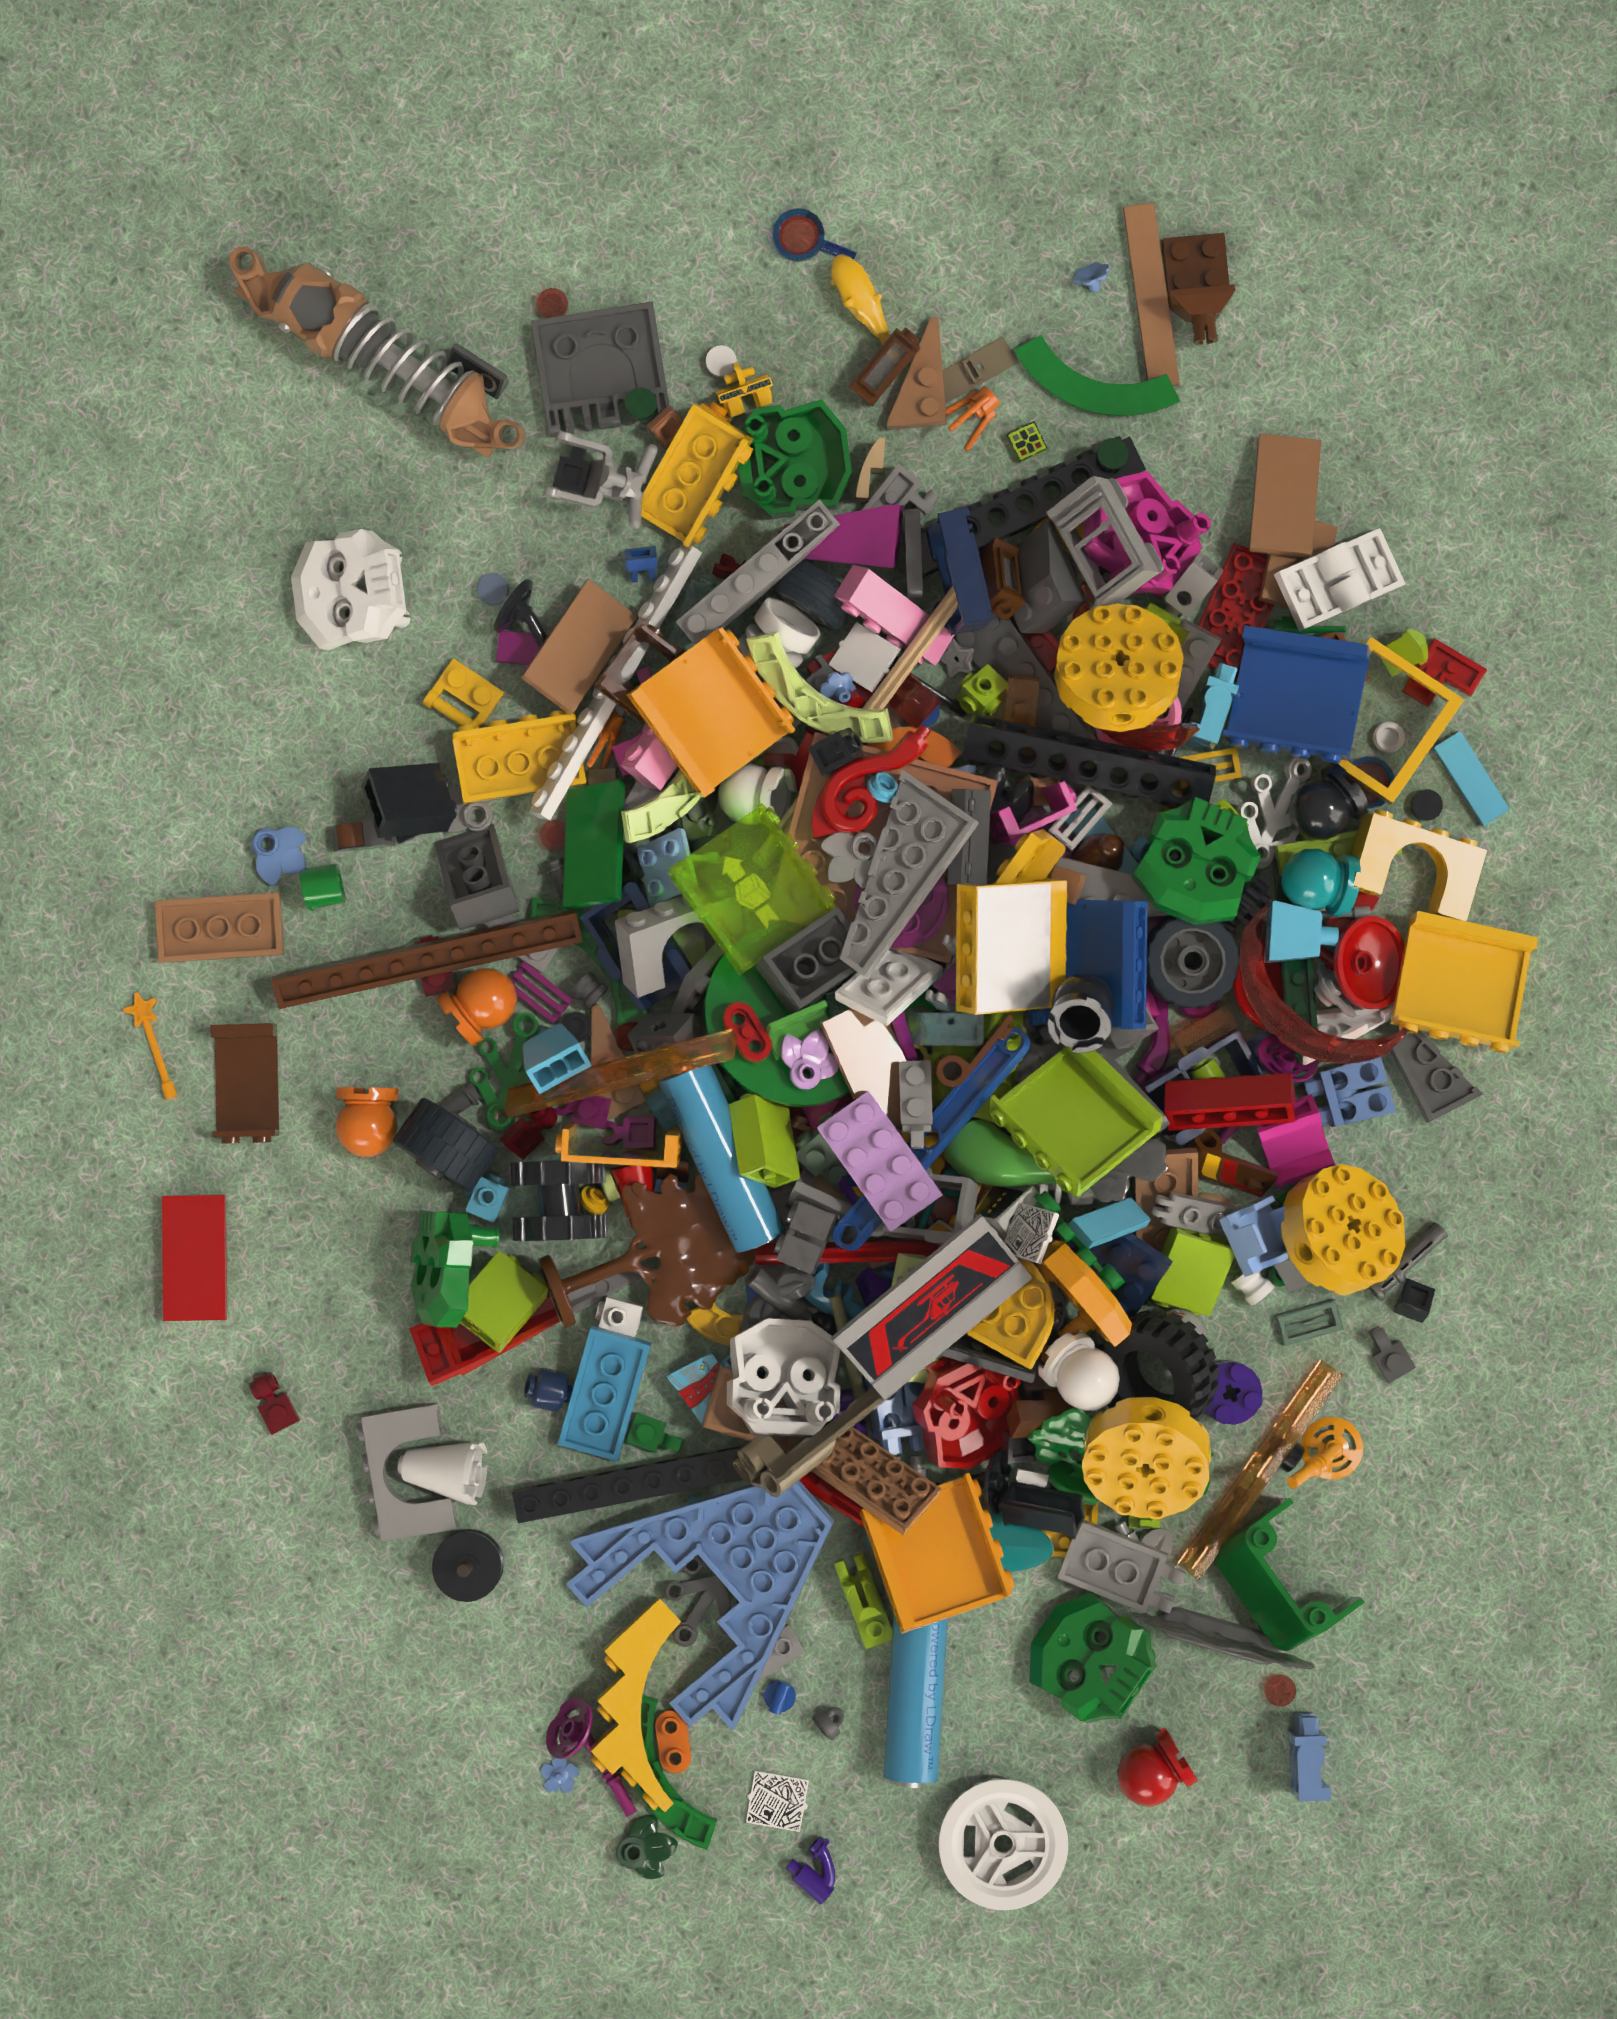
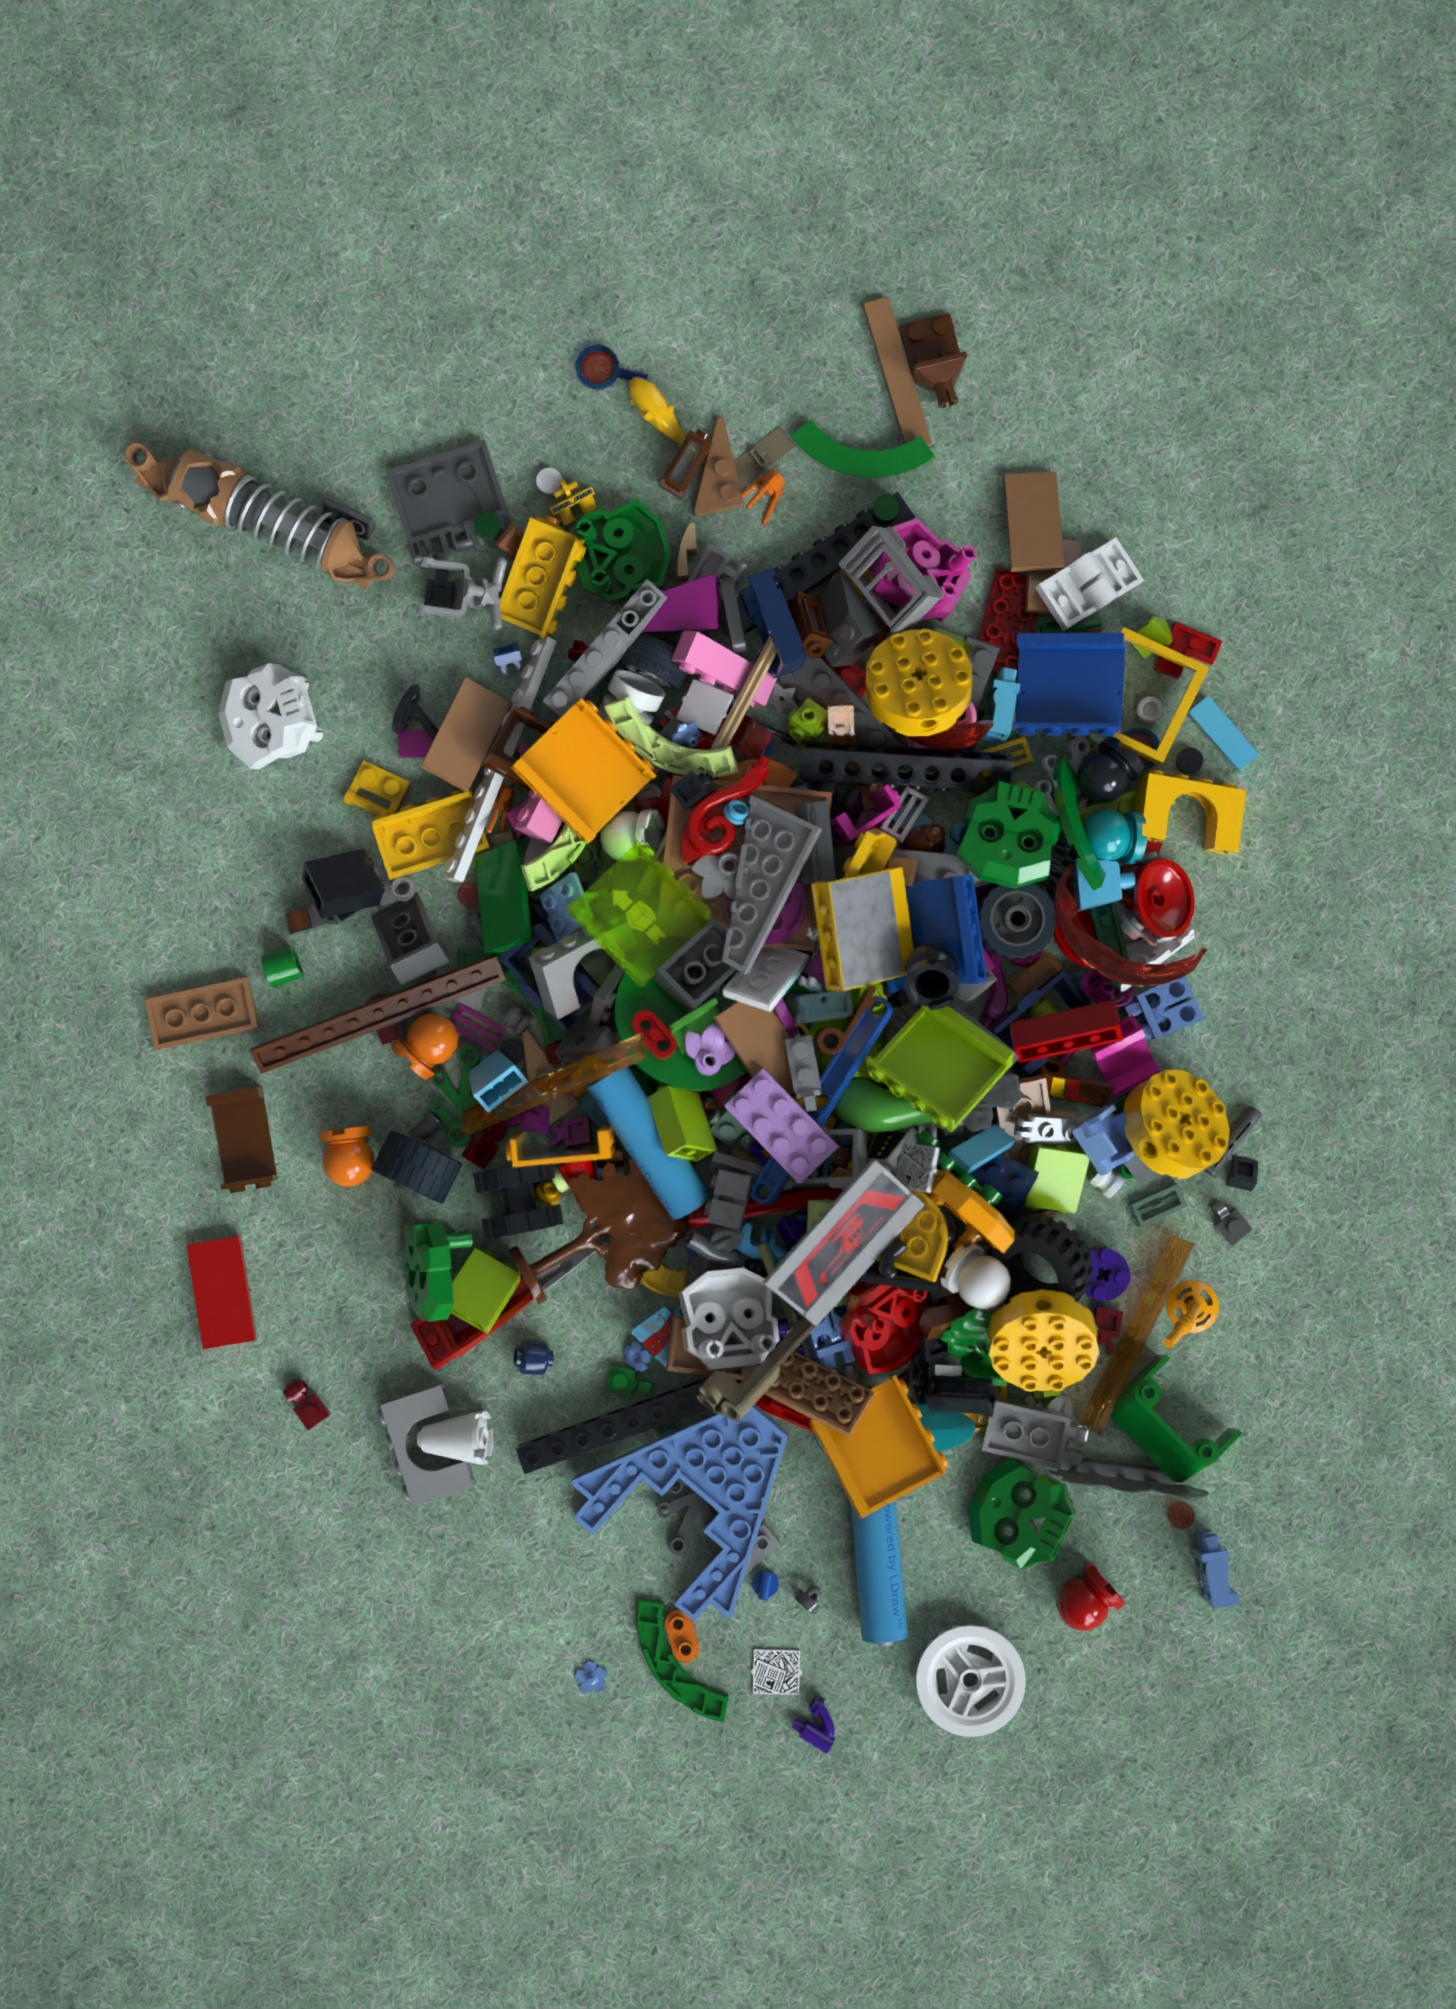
camera: 10 degrees left, 0 degrees up
(143, 1014) = (148, 1095): light orange piece -> none
(283, 855) = (245, 946): medium blue plate -> none
(467, 1565) = (488, 1515): black wheel -> none
(488, 1197) = (459, 1205): medium azure brick -> none
(492, 589) = (387, 698): sand blue tile -> none
(552, 303) = (402, 453): clear red tile -> none
(578, 1733) = (601, 1641): magenta dish -> none
(604, 1393) = (580, 1353): dark azure plate -> none
(619, 1315) = (583, 1287): white brick -> none
(623, 1743) = (639, 1646): yellow arch -> none
(650, 1846) = (677, 1728): dark green plate -> none
(669, 1406) = (636, 1356): none -> medium blue plant
(864, 1602) = (824, 1494): lime plate -> none
(980, 1333) = (887, 1258): none -> black arm
(1026, 442) = (812, 510): tile -> none
(1091, 275) = (845, 364): medium blue plant -> none
(1197, 581) = (972, 601): light grey torso -> none
(1228, 1454) = (1108, 1325): none -> dark red plate
(1273, 857) = (1071, 823): none -> green tile
(1293, 1458) = (1163, 1320): black tile -> none
(1431, 1077) = (1228, 986): dark grey wing -> none
(1462, 981) = (1242, 902): yellow panel -> none

